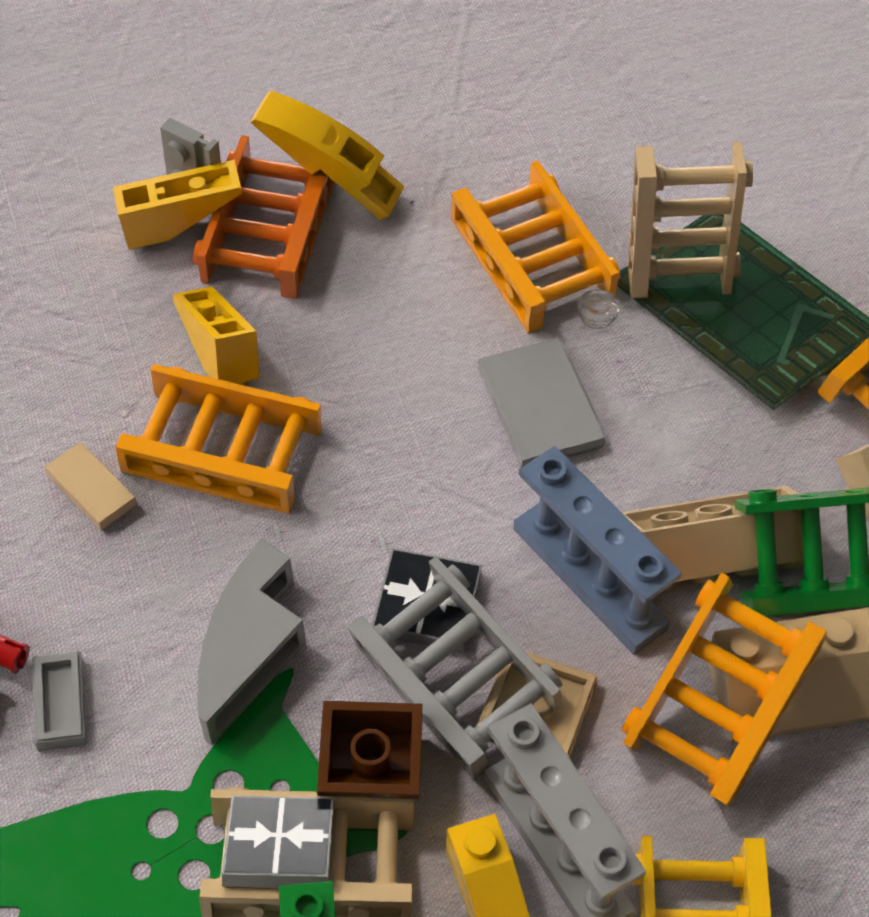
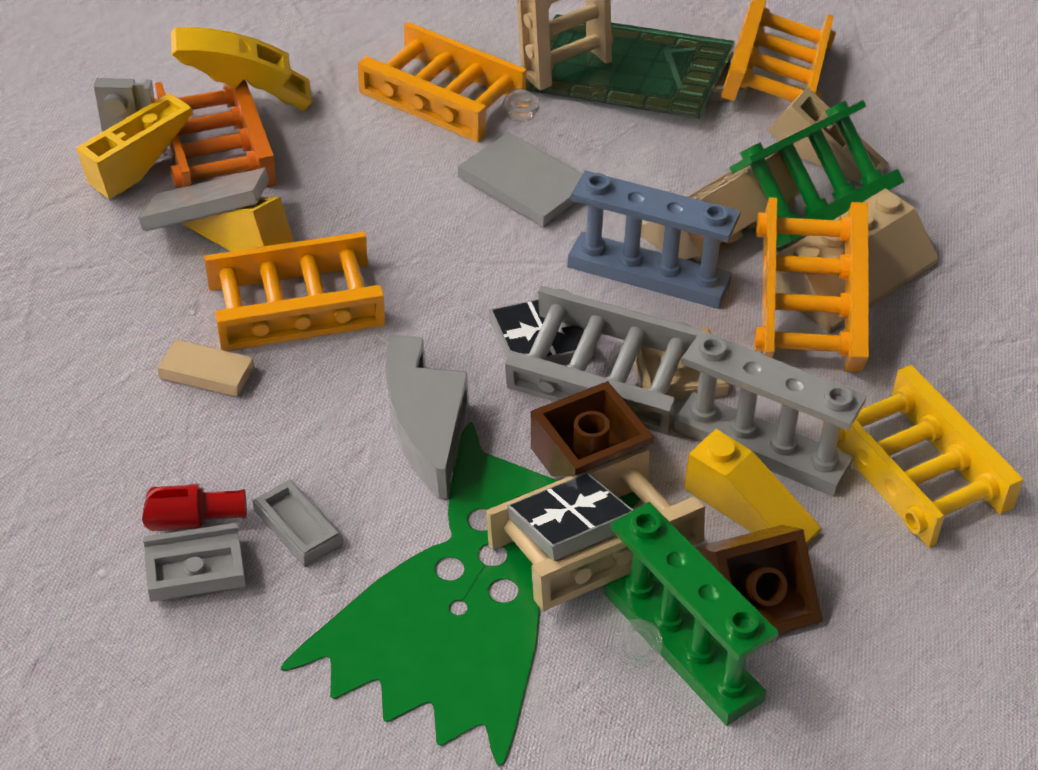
camera: 30 degrees left, 10 degrees down
(199, 296) = (204, 199): none -> light grey tile

